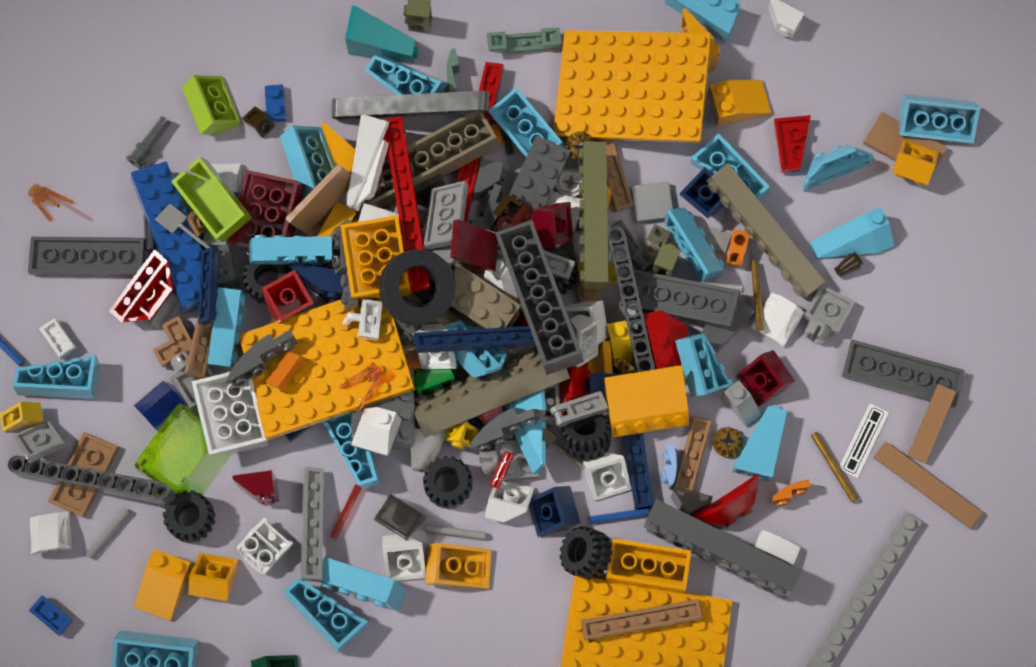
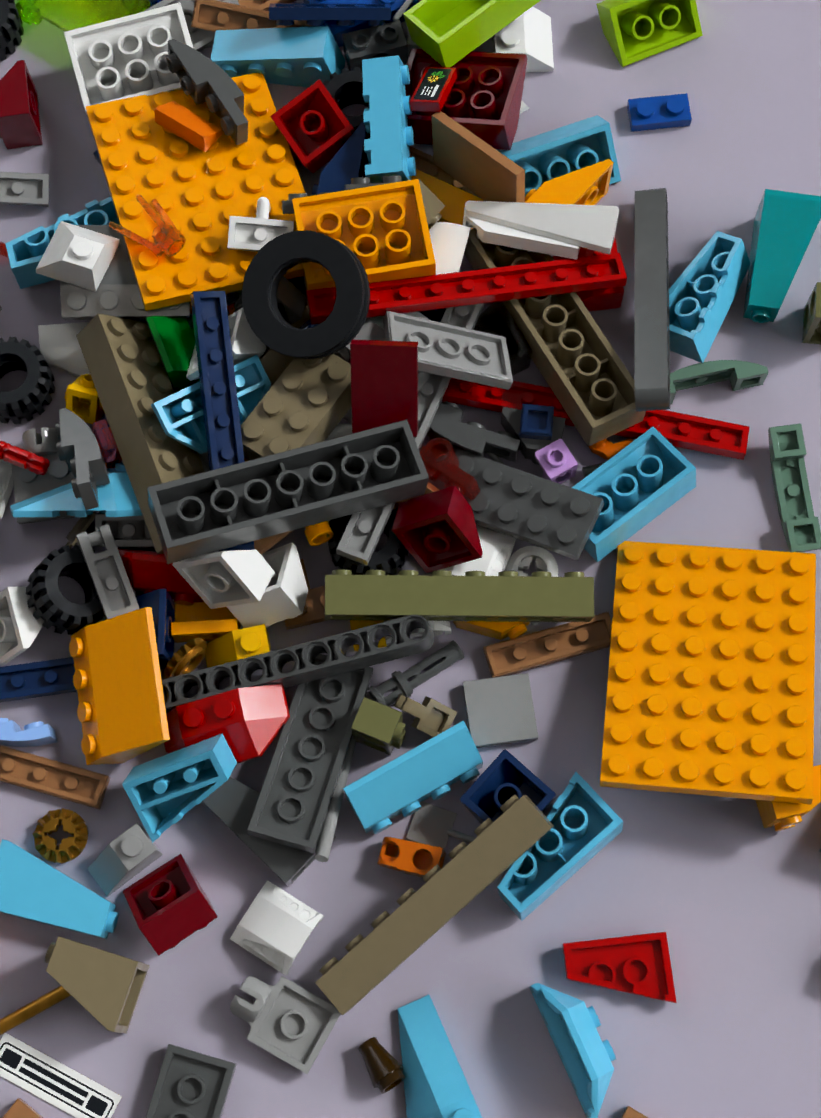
camera: 90 degrees right, 0 degrees up
(259, 121) = (622, 87): dark brown bracket -> none
(268, 223) = (433, 89): none -> tile
(484, 173) = (536, 422): none -> dark blue tile
(504, 206) = (474, 451): dark brown bracket -> none
(508, 164) = (556, 462): none -> lavender bracket
(575, 139) = (607, 573): pearl gold gear -> none
(738, 100) = (700, 868): light orange slope -> none
(757, 295) = (321, 891): pearl gold bar -> none
(810, 409) = (98, 980): none -> dark tan slope

